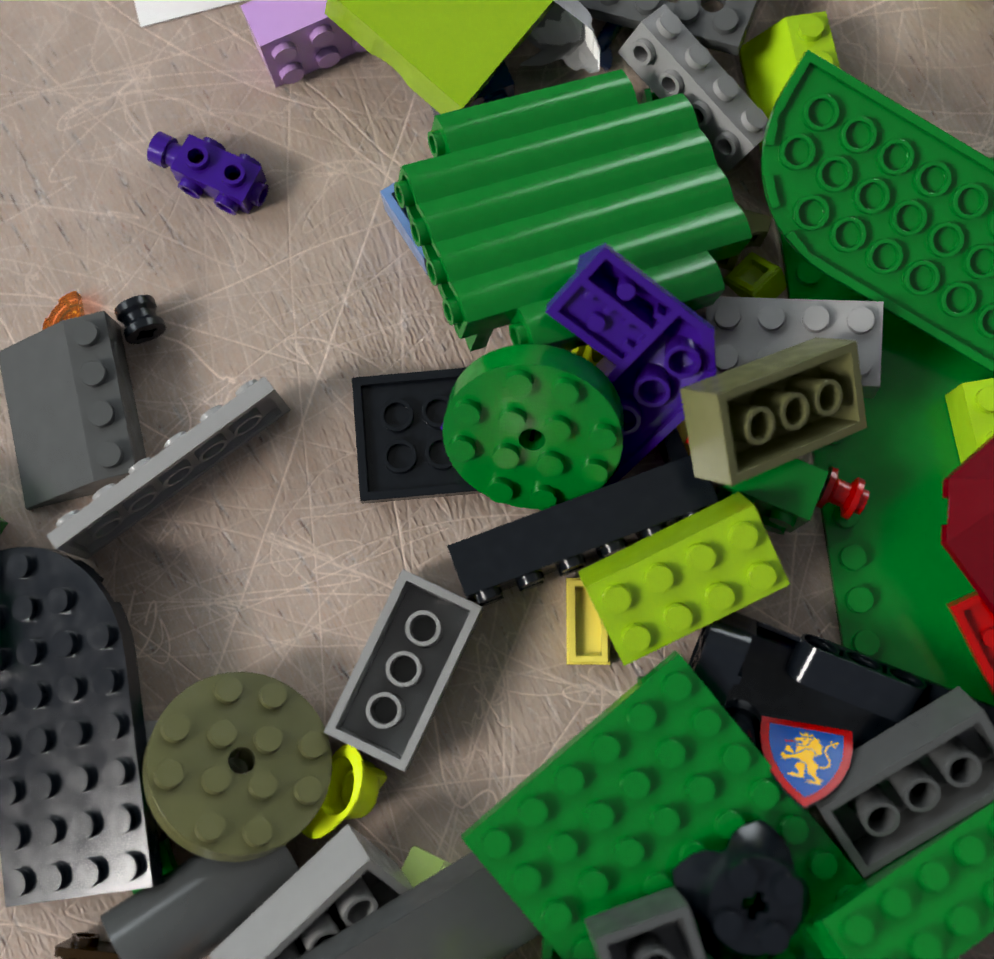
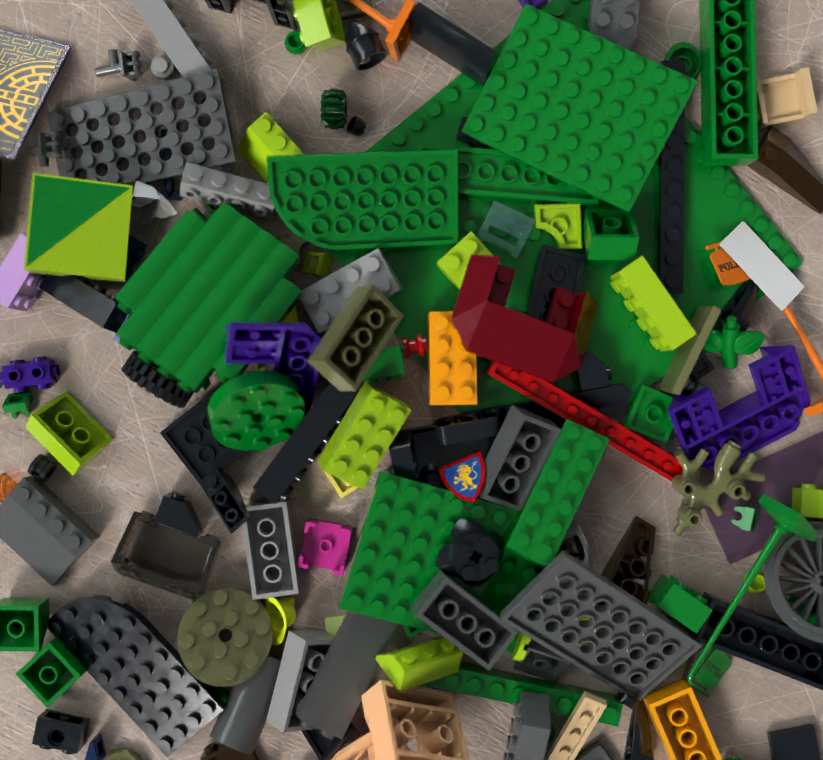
camera: 40 degrees left, 10 degrees up
(171, 470) = (108, 524): light grey plate -> none
(174, 203) = (18, 402): none -> green tile
(215, 293) = (68, 432): none -> lime slope
(229, 575) = (165, 557): none -> clear smoke windscreen
(295, 521) = (178, 514): none -> black slope
(378, 107) = (86, 299): none -> black brick
(388, 540) = (225, 499): none -> black slope
(410, 289) = (150, 379): none -> black tyre
(493, 725) = (325, 545): none -> dark pink panel
(886, 556) = (450, 367): none -> light orange brick
(928, 70) = (333, 108): none -> dark green gear
(945, 117) = (356, 126): none -> black hinge

